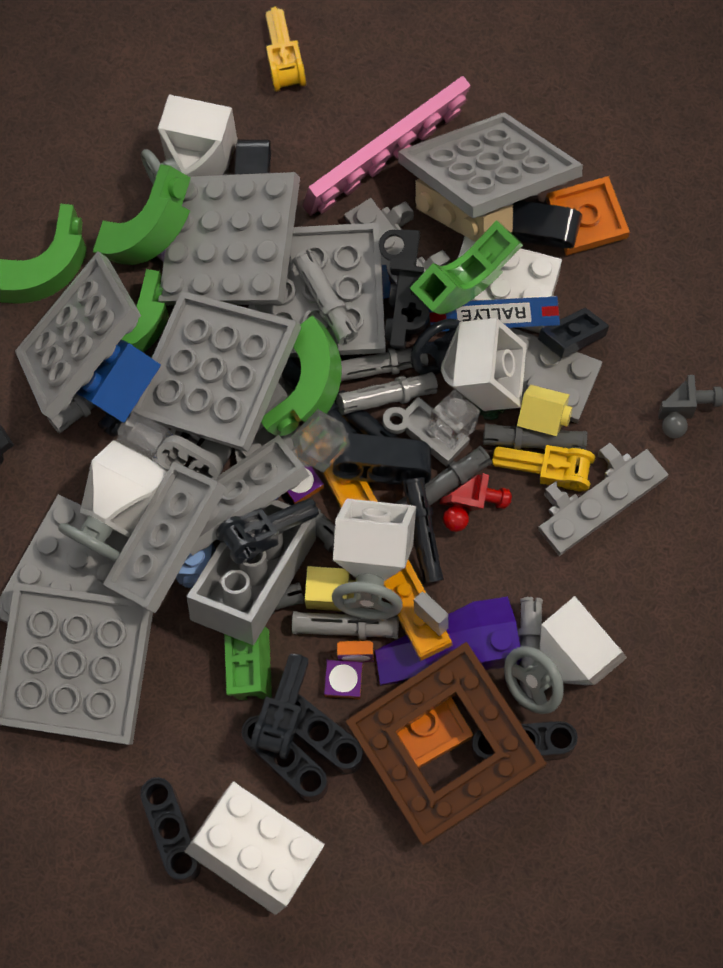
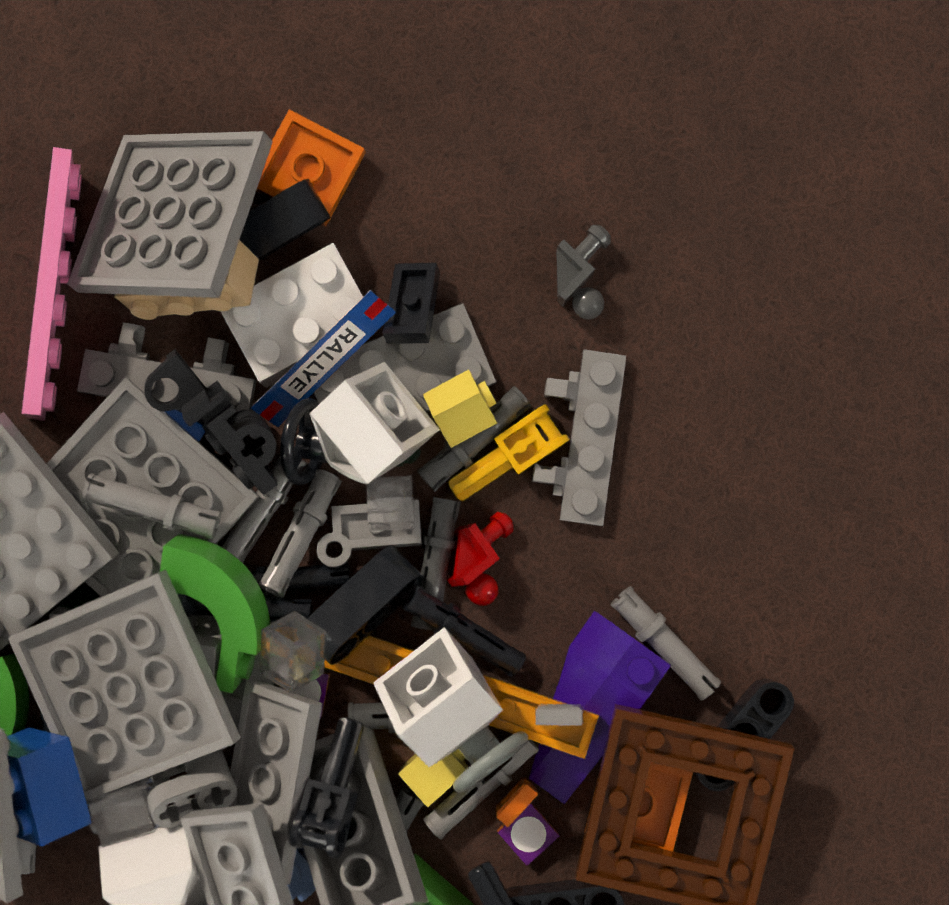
camera: 50 degrees left, 15 degrees up
(461, 281) = (267, 354): bright green arch -> none
(570, 652) = (711, 612): white piece -> none

